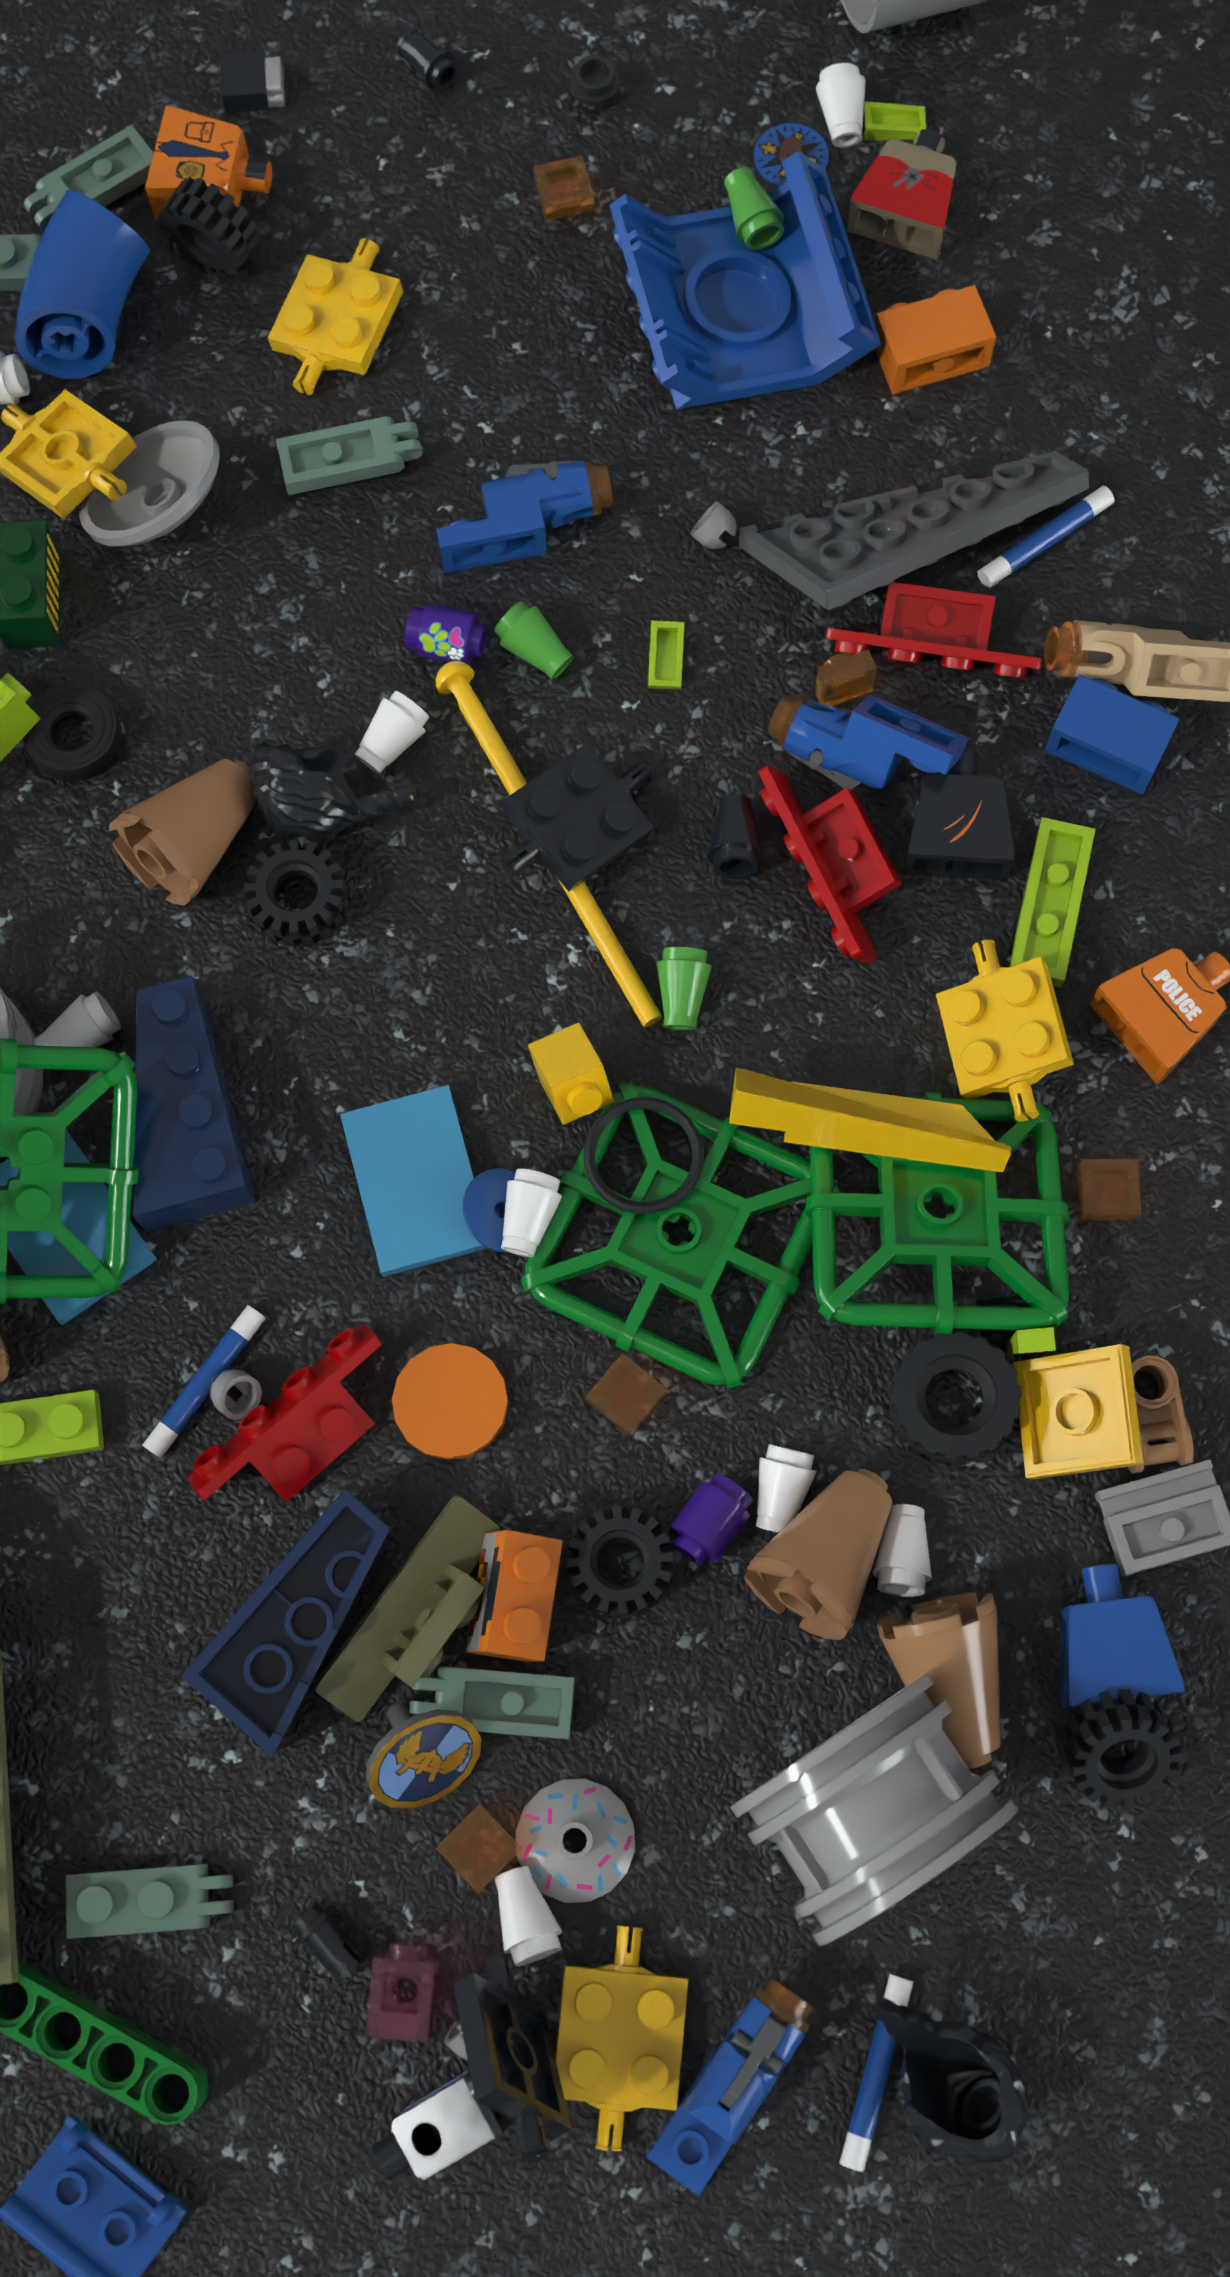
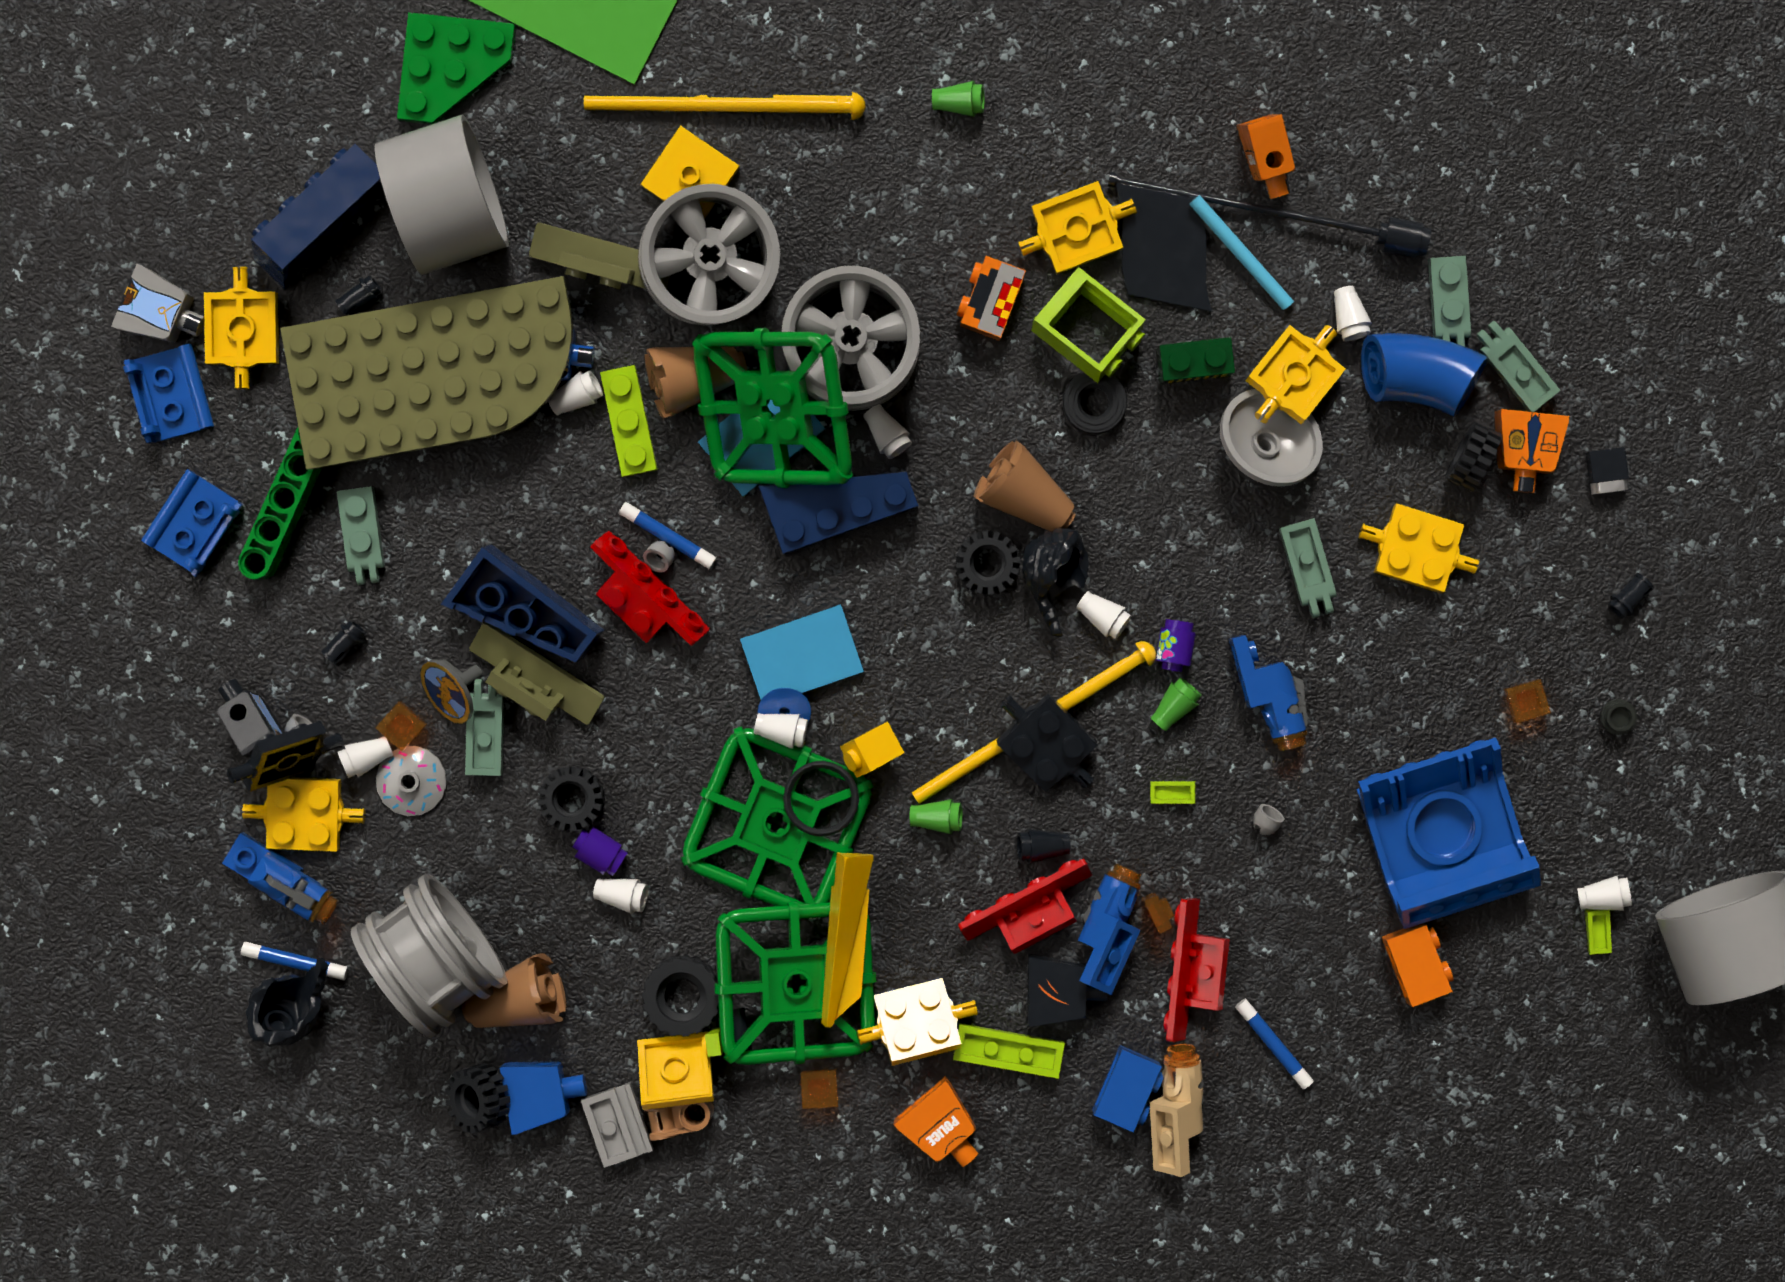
camera: 80 degrees right, 15 degrees up
(392, 2017) = (304, 689): clear pink brick -> none
(450, 1401) = (663, 688): orange tile -> none
(517, 1596) = (547, 741): orange brick -> none
(626, 1394) = (672, 795): clear orange plate -> none
(754, 212) = (1508, 835): bright green cone -> none
(782, 142) = (1569, 859): piece -> none
(825, 1555) = (581, 922): medium nougat cone -> none
(899, 530) = (1265, 945): dark grey wing -> none
(903, 1553) = (587, 967): white cone -> none
(906, 195) = (1532, 944): torso -> none

